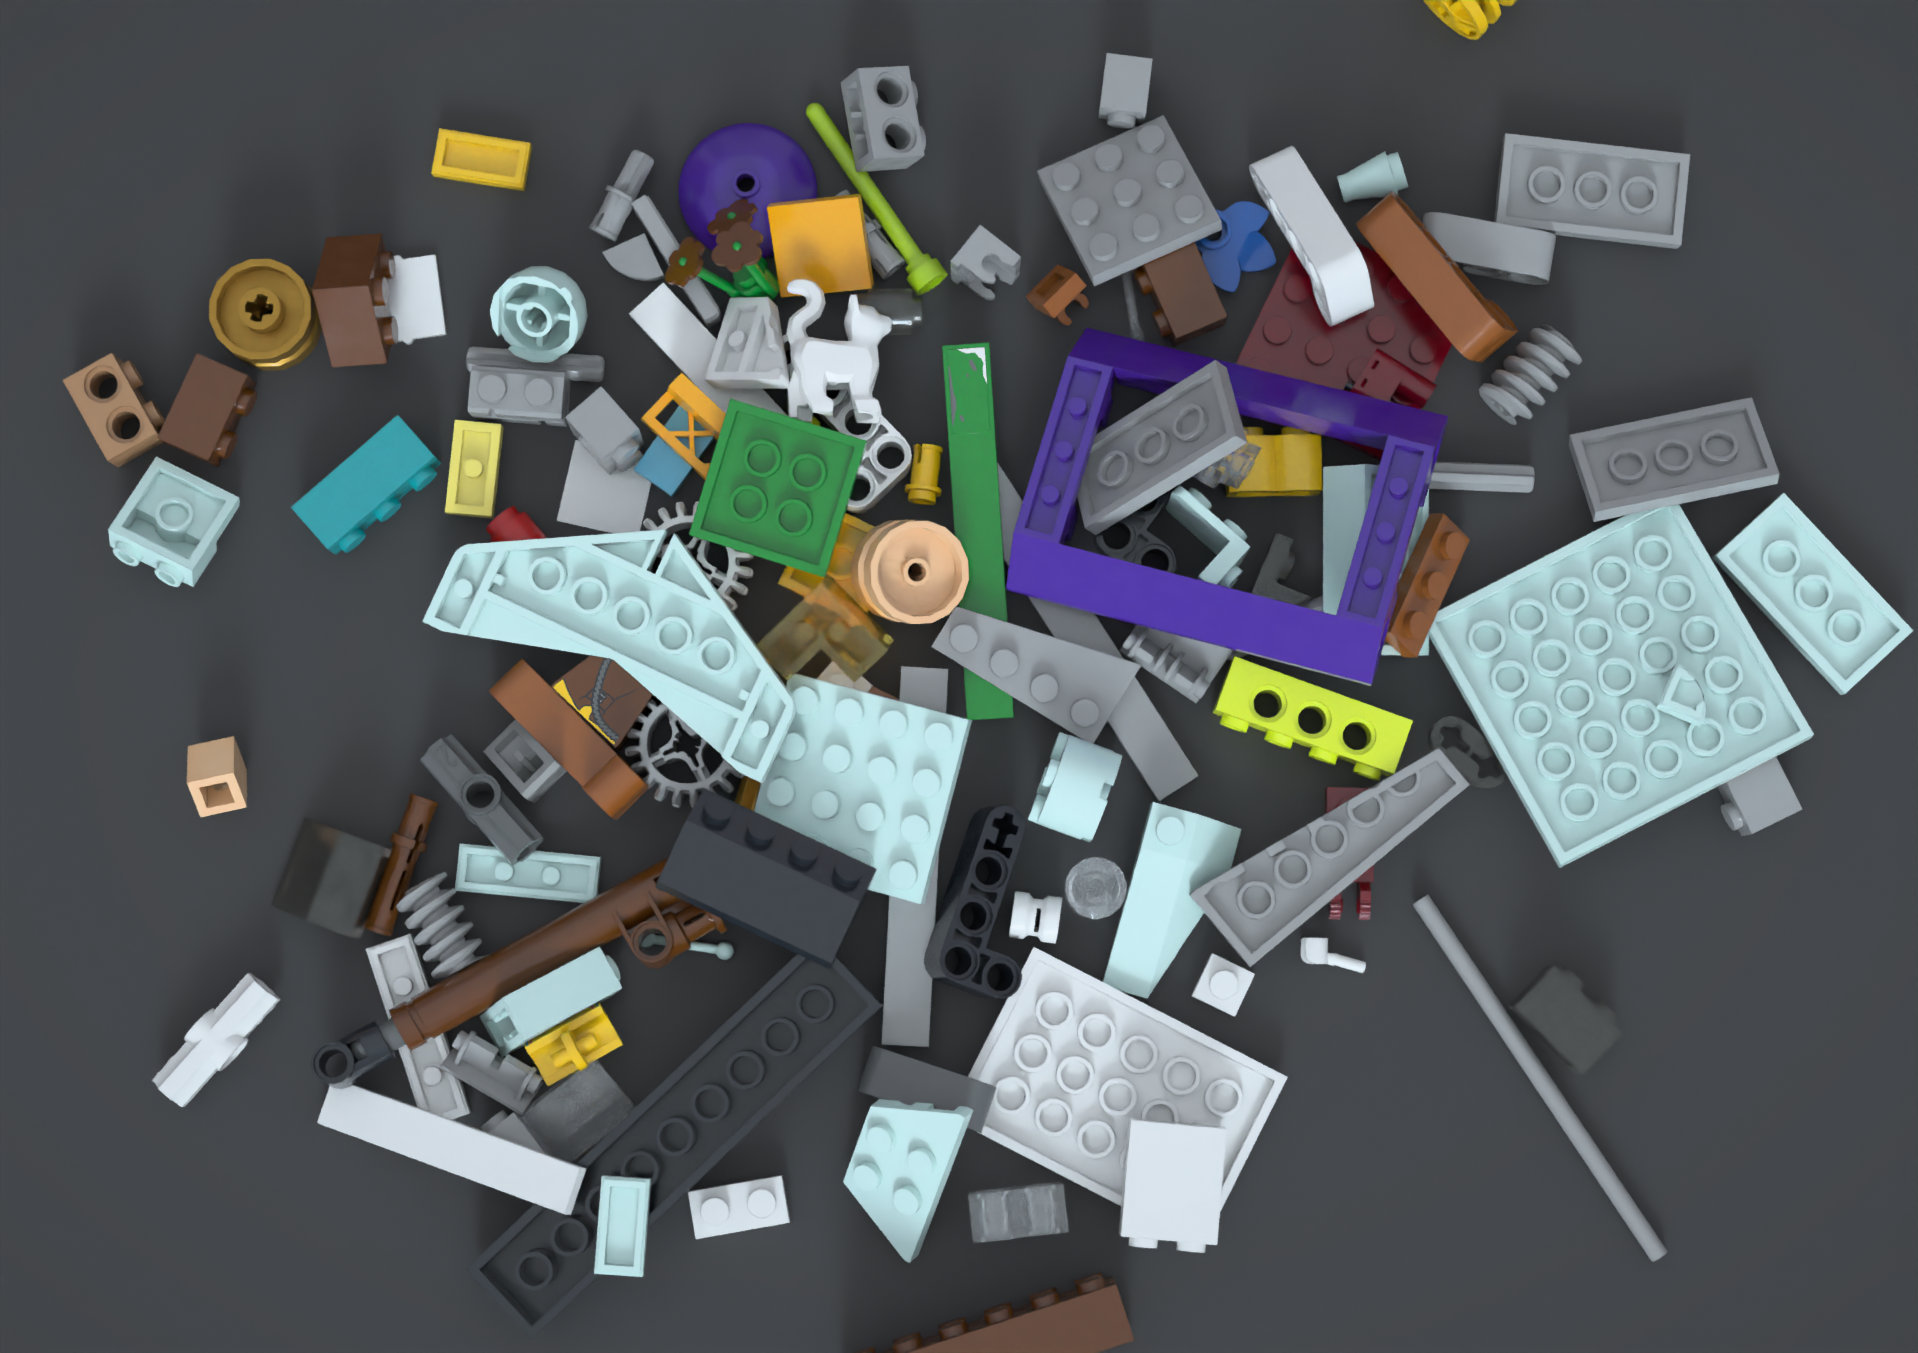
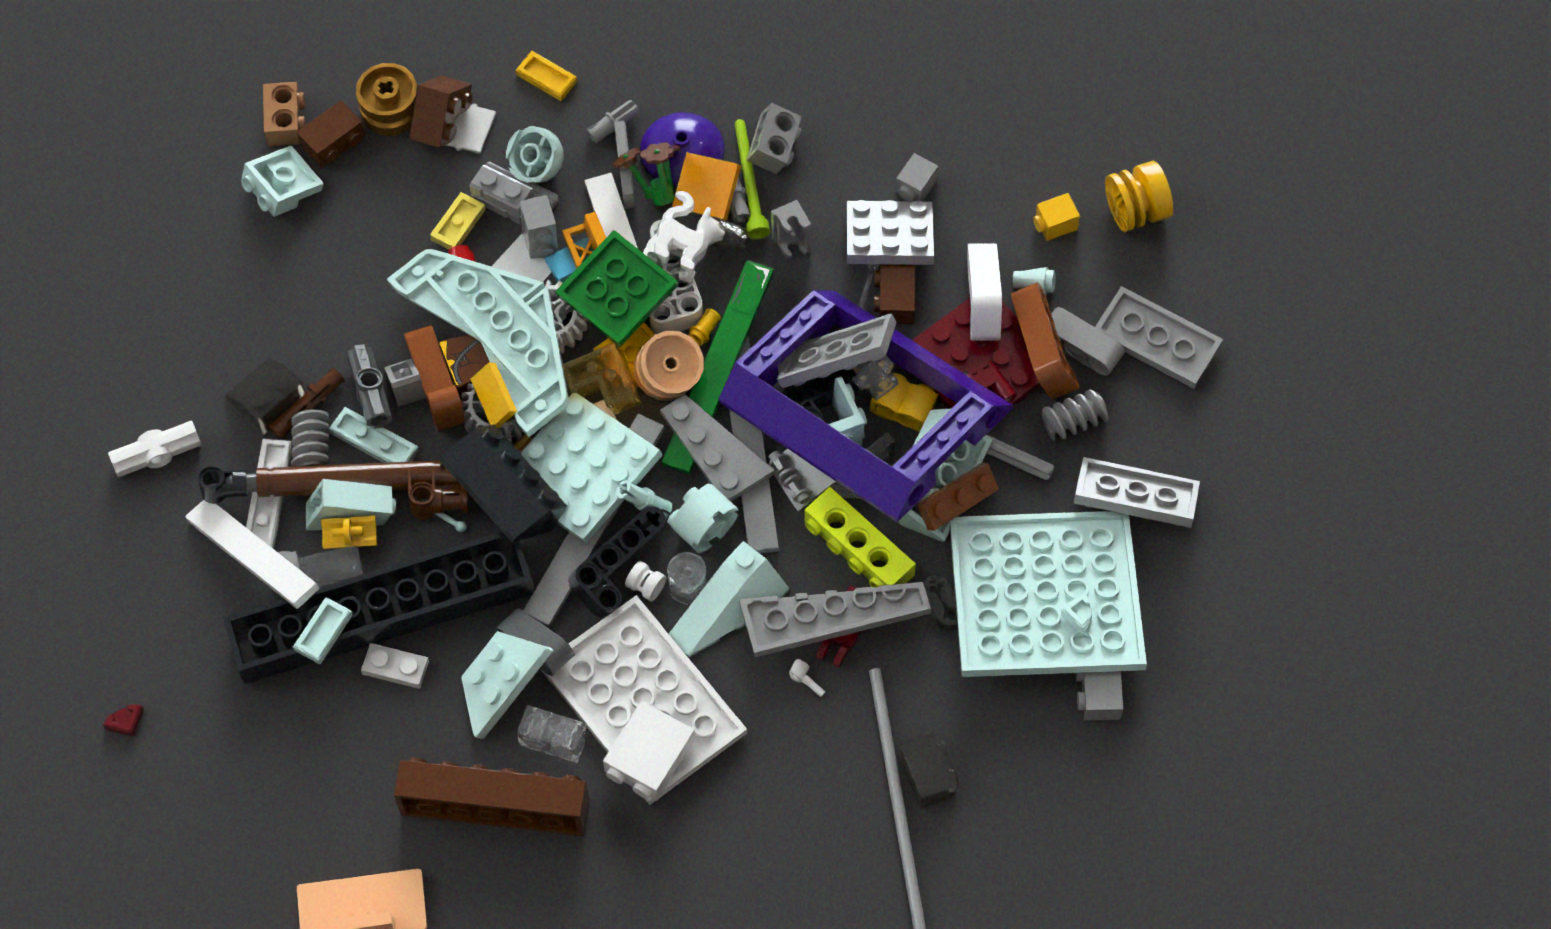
camera: 25 degrees right, 20 degrees down
(217, 776) = (232, 313): light nougat brick -> none
(367, 486) = (395, 205): teal brick -> none
(499, 1078) = (302, 538): light grey hinge -> none
(635, 259) = (602, 156): light grey tile -> none
(681, 742) = (493, 395): none -> yellow tile
(749, 347) = (639, 218): white wing -> none
(976, 798) = (642, 497): none -> light aqua pin
(1056, 292) = (826, 265): dark orange tile -> none
(1223, 984) = (735, 667): white plate -> none
(1238, 247) = (940, 286): blue plate -> none
(1359, 59) = (1056, 217): none -> yellow brick
(1812, 594) = (1186, 601): light aqua plate -> none

